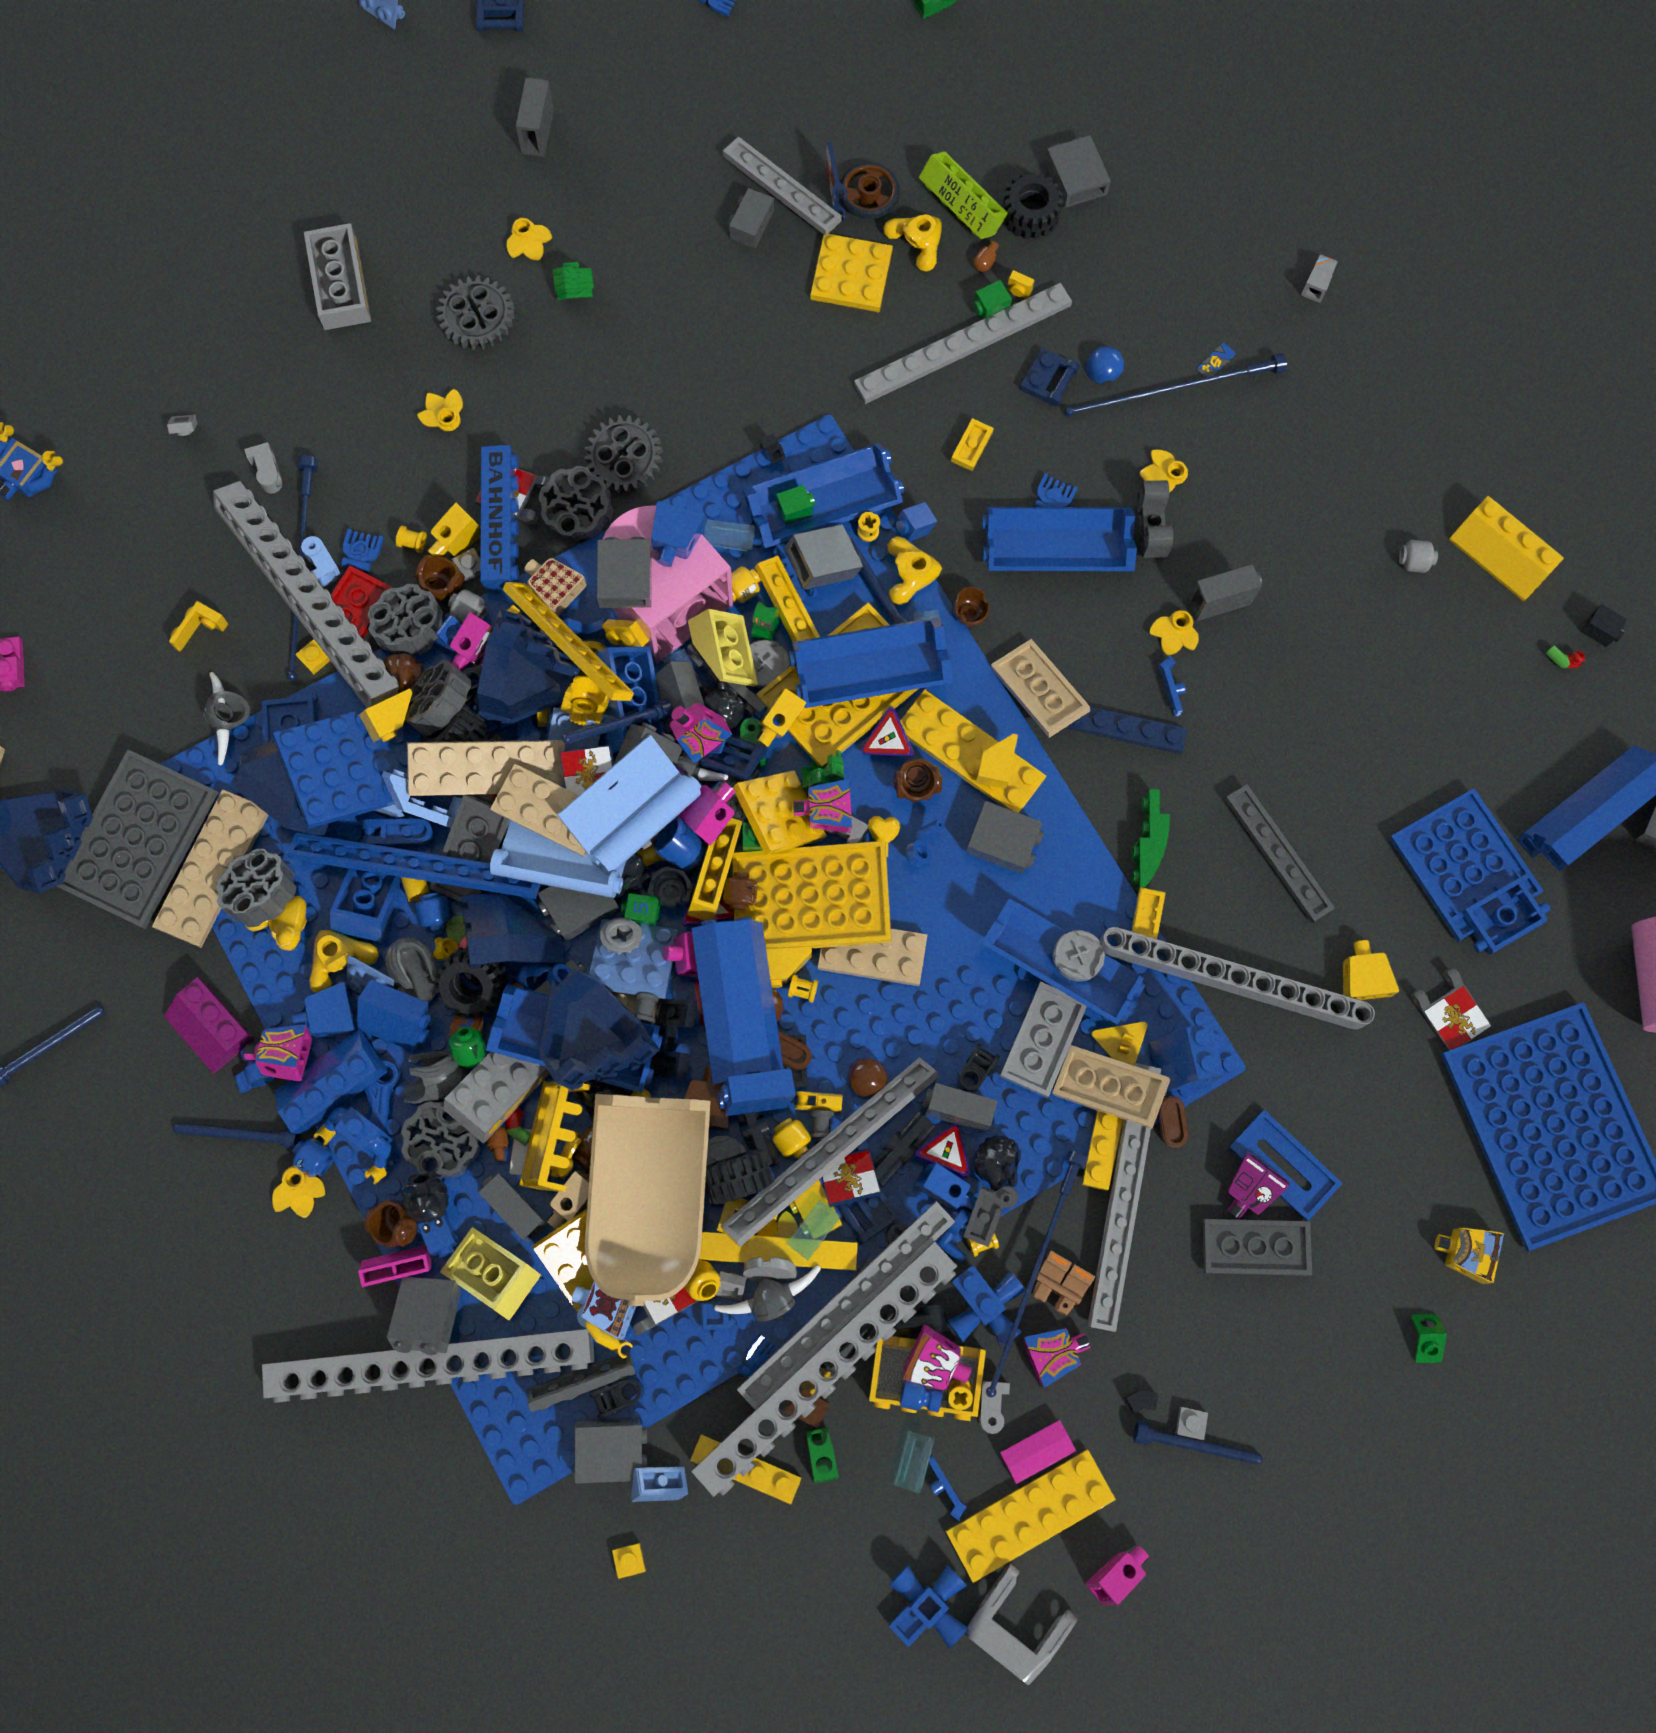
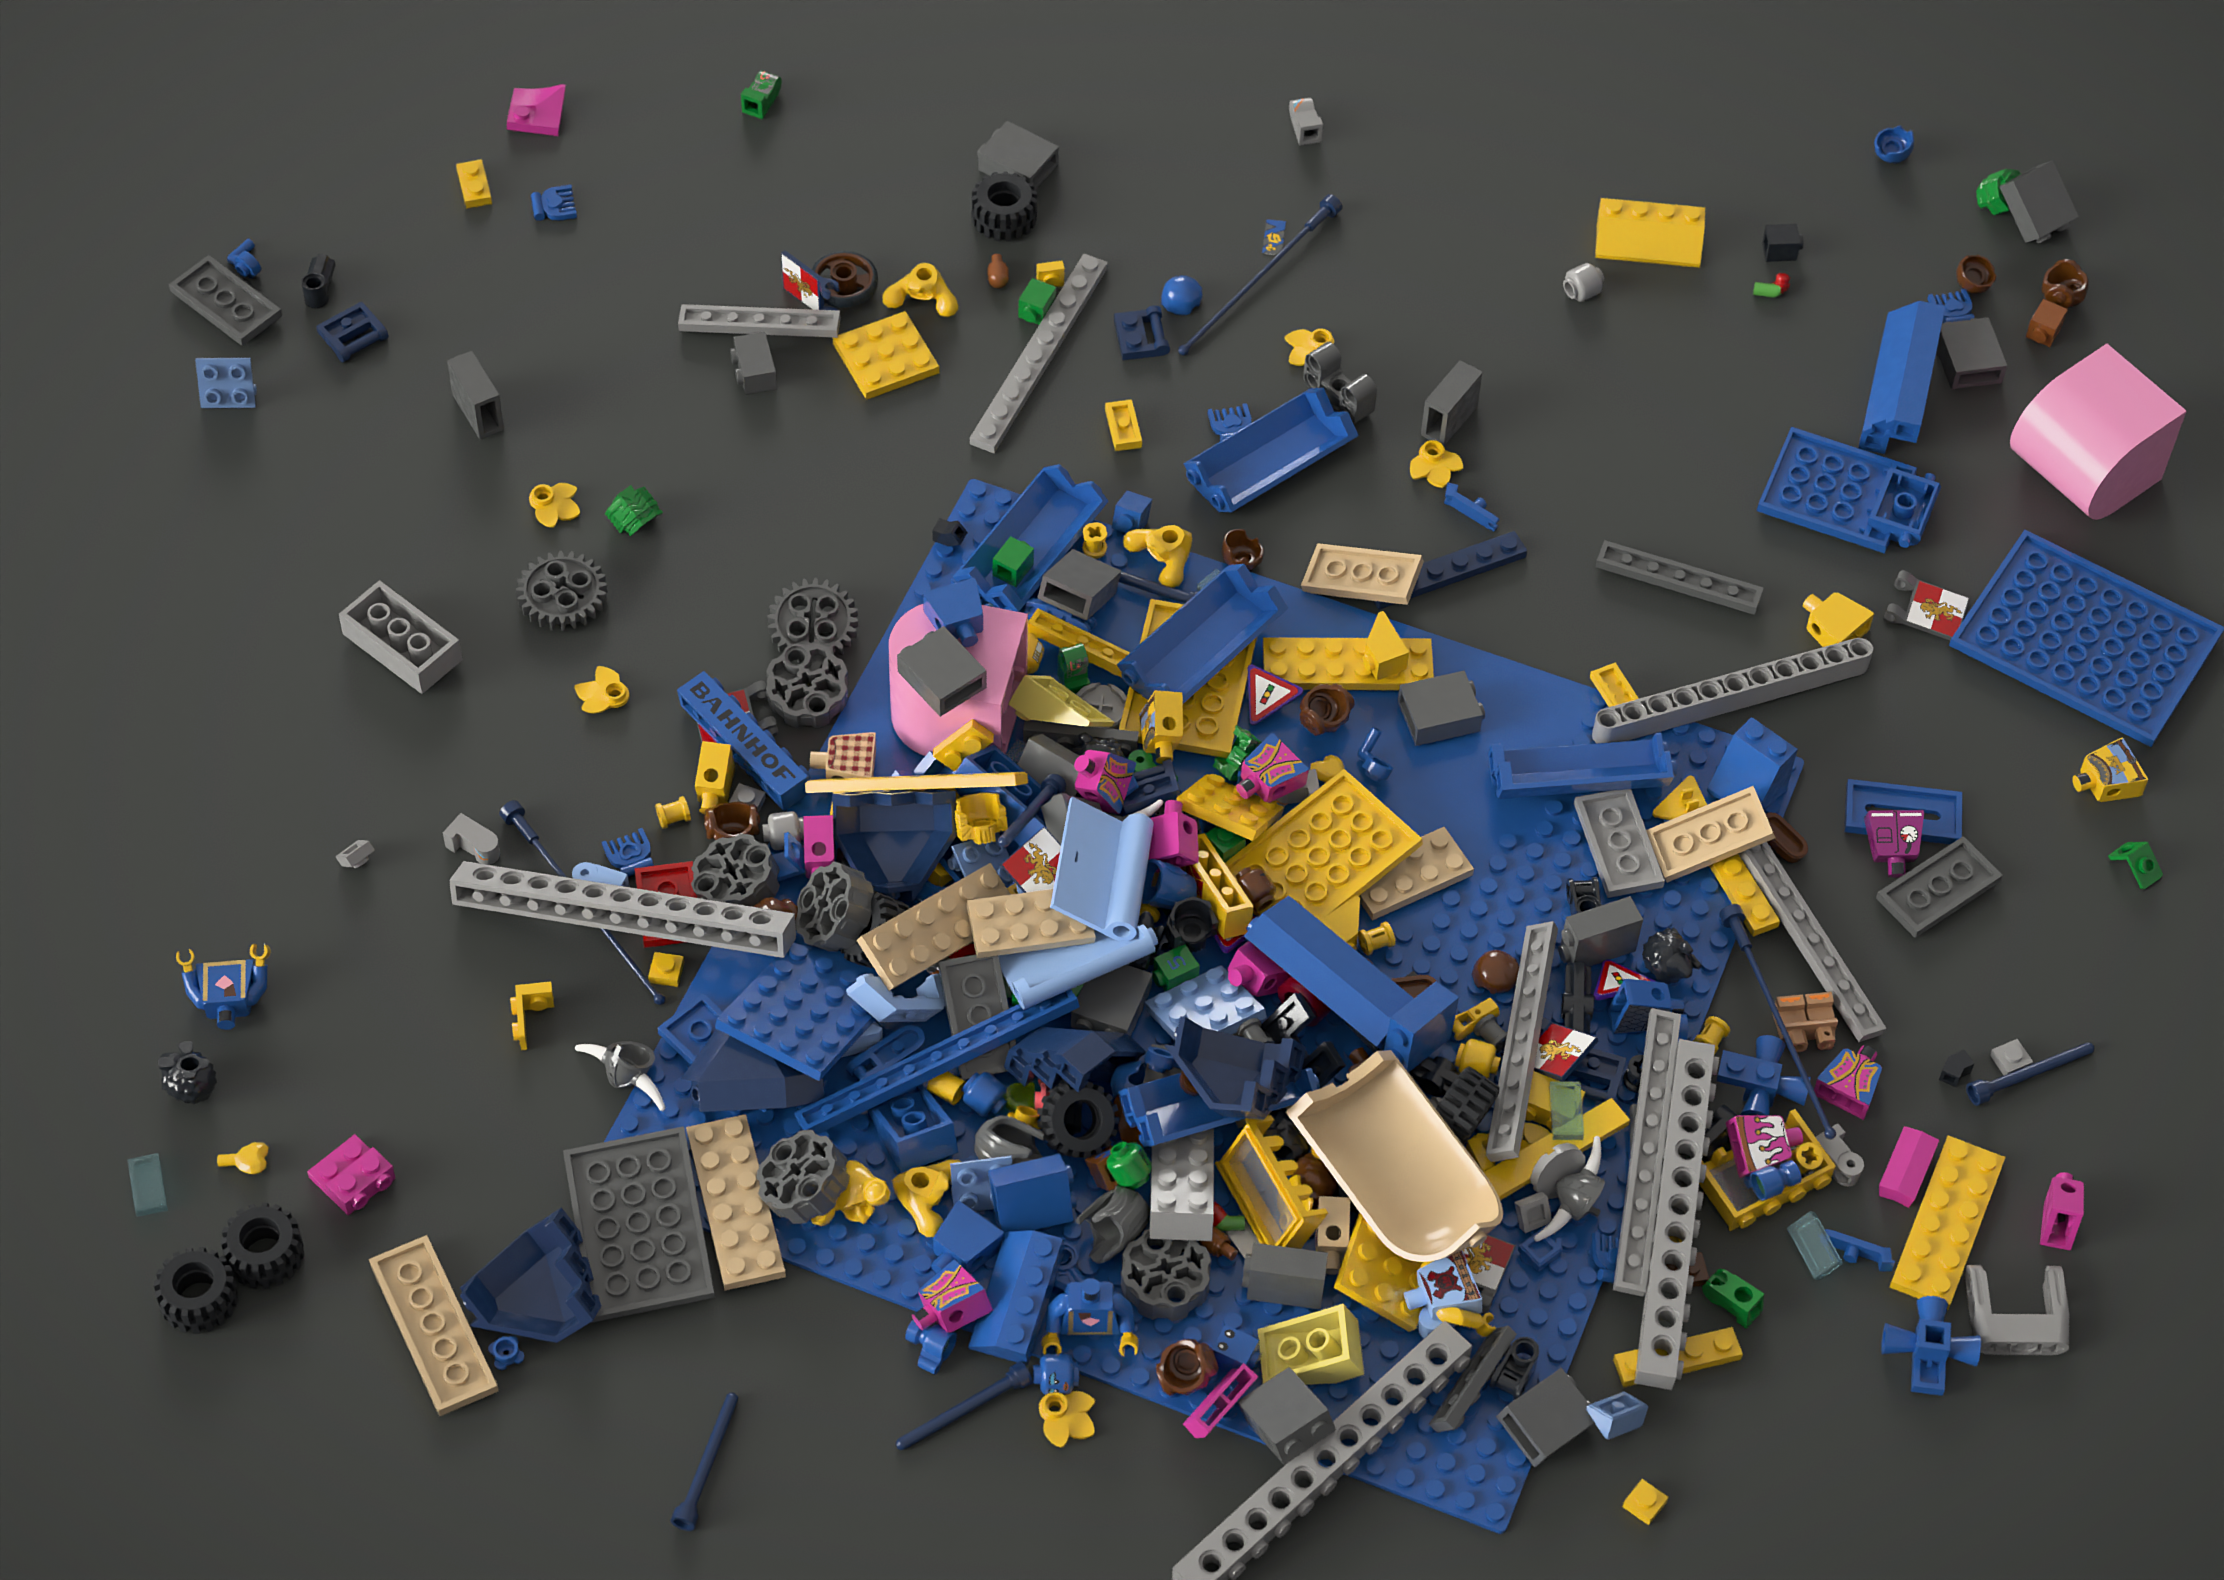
camera: 35 degrees left, 20 degrees down
(207, 1025) = (852, 1334): magenta slope -> none
(386, 717) = (807, 946): yellow slope -> none
(425, 1197) = (1202, 1315): black animal -> none
(624, 927) = (1173, 996): light grey gear -> none
(704, 1282) = (1513, 1223): yellow head -> none
(963, 195) = (935, 233): lime brick -> none
(988, 1212) = (1700, 998): dark grey hinge -> none
(1078, 955) = (1588, 755): light grey tile -> none
(1150, 850) = (1569, 635): green slope -> none

